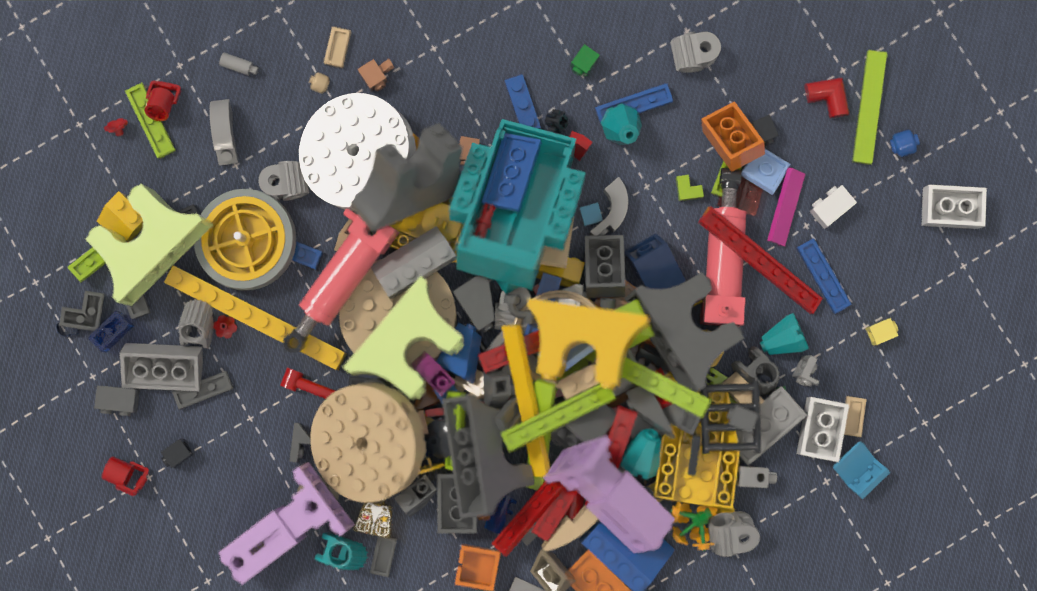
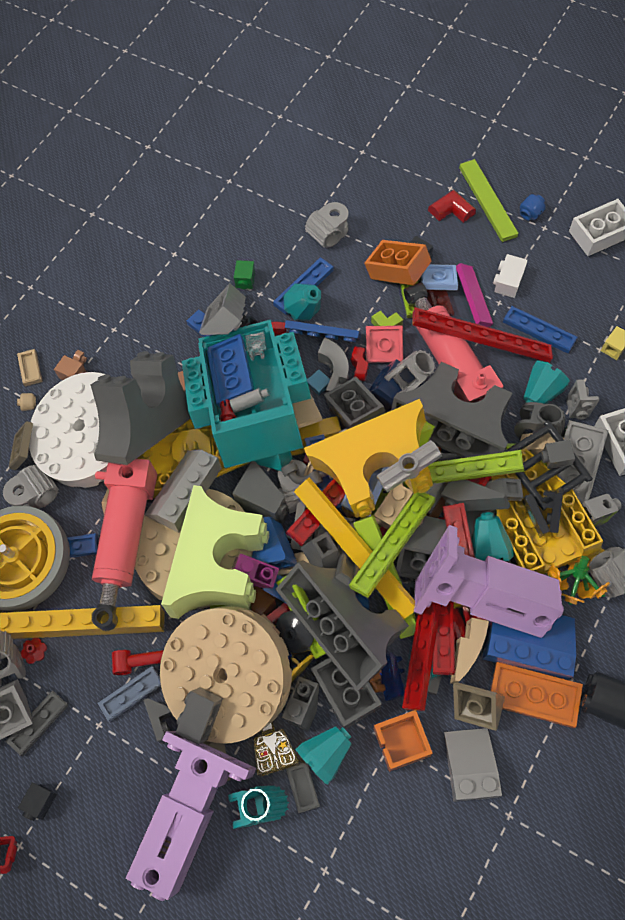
camera: 20 degrees left, 20 degrees down
(286, 408) = (130, 694): none -> sand blue tile
(294, 133) = (20, 445): none -> dark tan tile
(330, 464) = (198, 715): none -> dark grey brick
(413, 543) = (326, 752): none -> teal cone
(510, 217) = (249, 399): none -> light grey cylinder
(539, 101) = (224, 312): none -> light grey slope
(549, 156) = (256, 344): none -> clear plate
(613, 373) = (420, 458): none -> light grey piece
(623, 168) = (329, 332): none -> blue plate
(637, 223) = (359, 363): none -> red piece
(671, 212) = (384, 344): none -> coral tile
(671, 275) = (419, 364): none -> light grey piece
(713, 458) = (553, 518): none -> black plate

